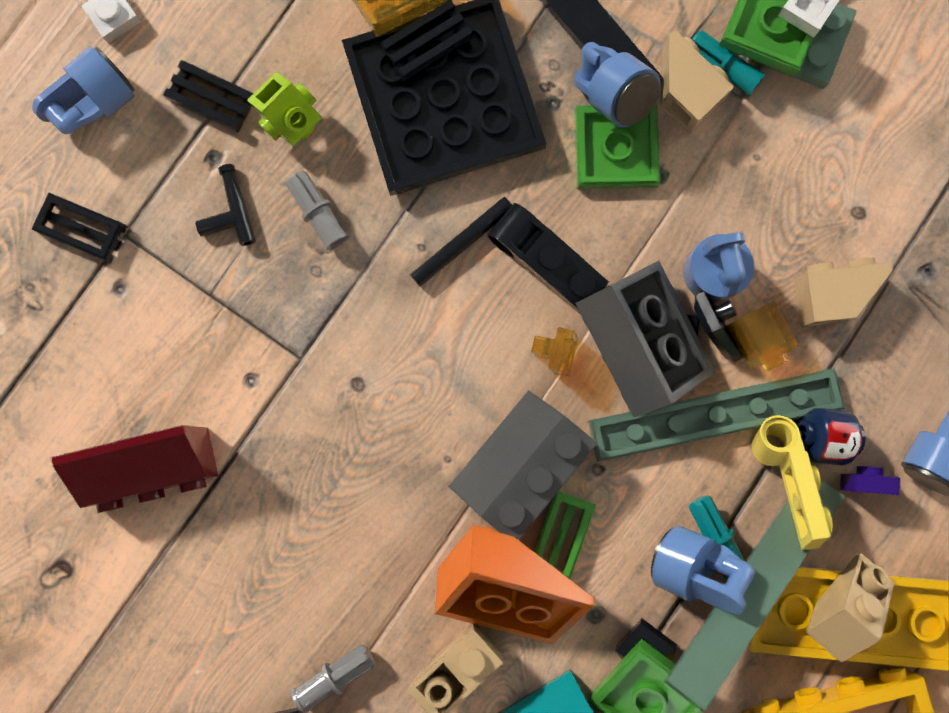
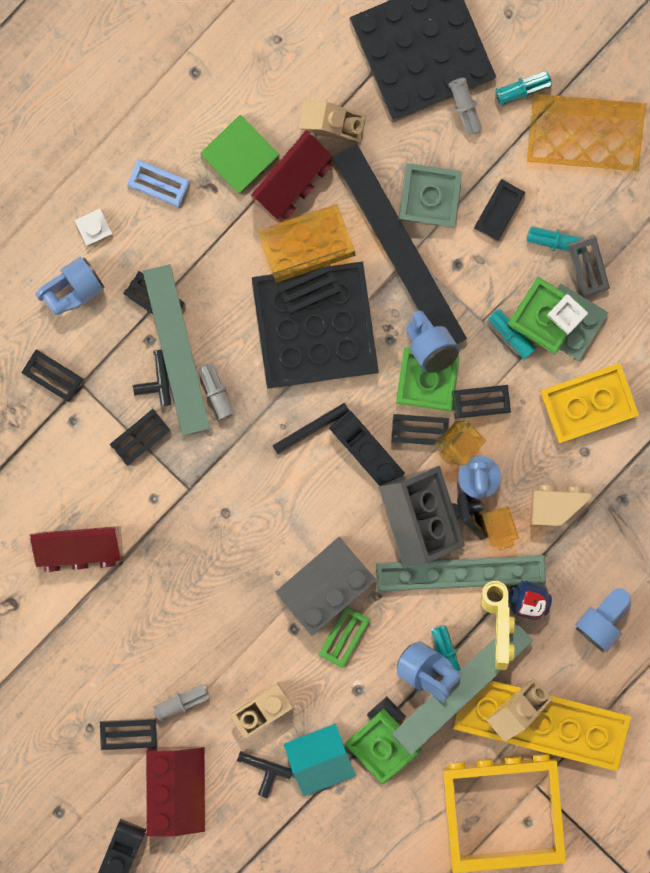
camera: 10 degrees right, 5 degrees up
(205, 283) = (121, 452): none -> black tile
(249, 158) = (176, 349): none -> sand green tile
(285, 109) = (209, 325): lime brick -> none
(507, 588) = (303, 663): orange slope -> none
(558, 350) = (363, 514): clear yellow tile -> none
(652, 214) = (395, 428): none -> black tile
(671, 170) = (458, 404): none -> black tile
(683, 222) = (459, 443): none -> clear yellow brick
(690, 83) = (482, 346): tan slope -> none
(855, 139) = (589, 403): none -> yellow plate
(870, 481) = (551, 632): dark purple plate -> none

